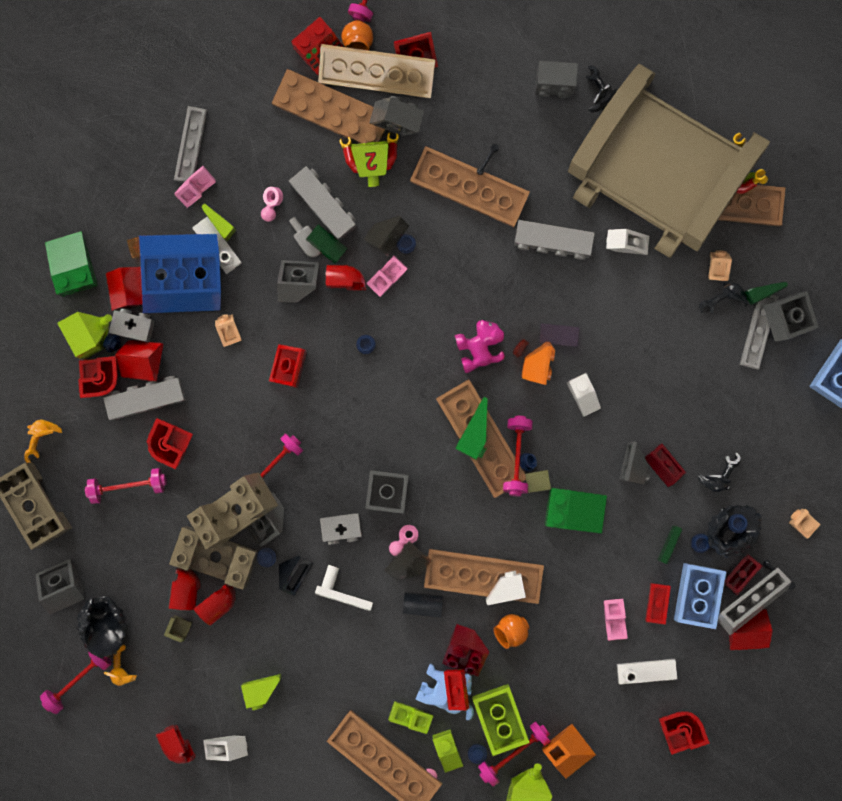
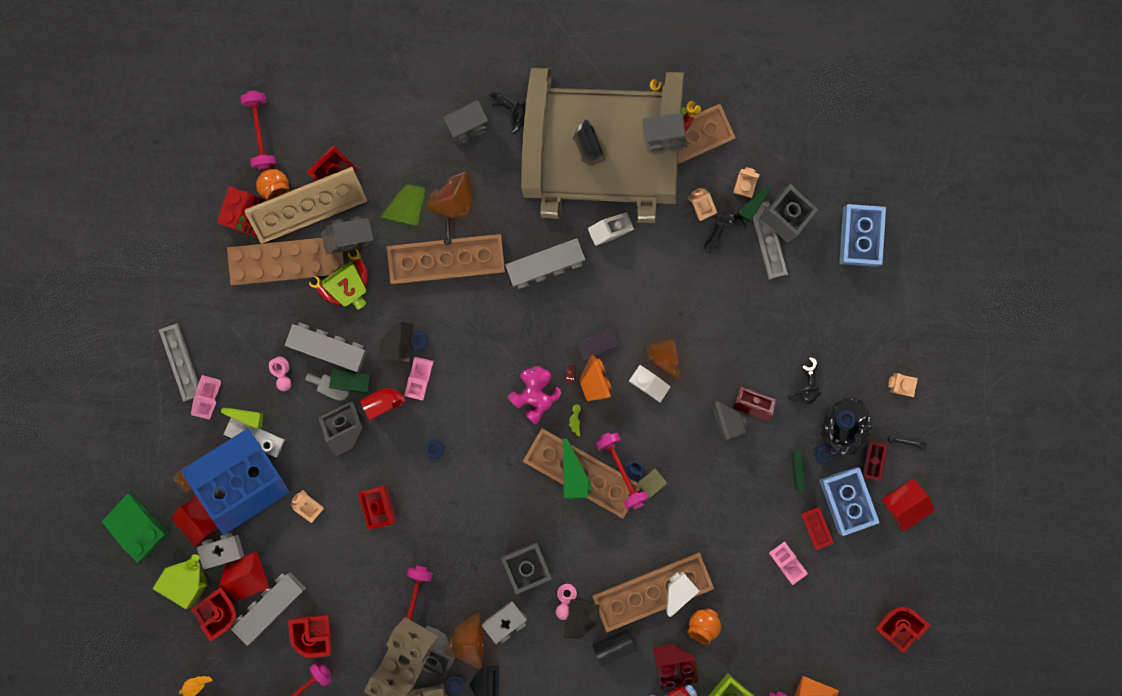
camera: 30 degrees left, 0 degrees up
(111, 343) = (211, 576): dark blue plate -> none
(300, 525) = (468, 641): none -> clear orange slope
(327, 591) = (522, 679): white piece -> none
(461, 121) = (406, 205): none -> clear neon green wing
(500, 389) = (574, 421): none -> lime piece
(506, 138) = (453, 198): none -> clear orange slope
(575, 510) = (699, 488): green slope -> none
(611, 379) = (664, 356): none -> clear orange slope
(646, 671) = (841, 592): white piece -> none
(651, 155) = (588, 144): none -> black slope
(725, 182) = (664, 133): none -> dark grey brick
(754, 601) = (898, 479): light grey brick -> none
(768, 269) = (746, 182): none -> light nougat bracket

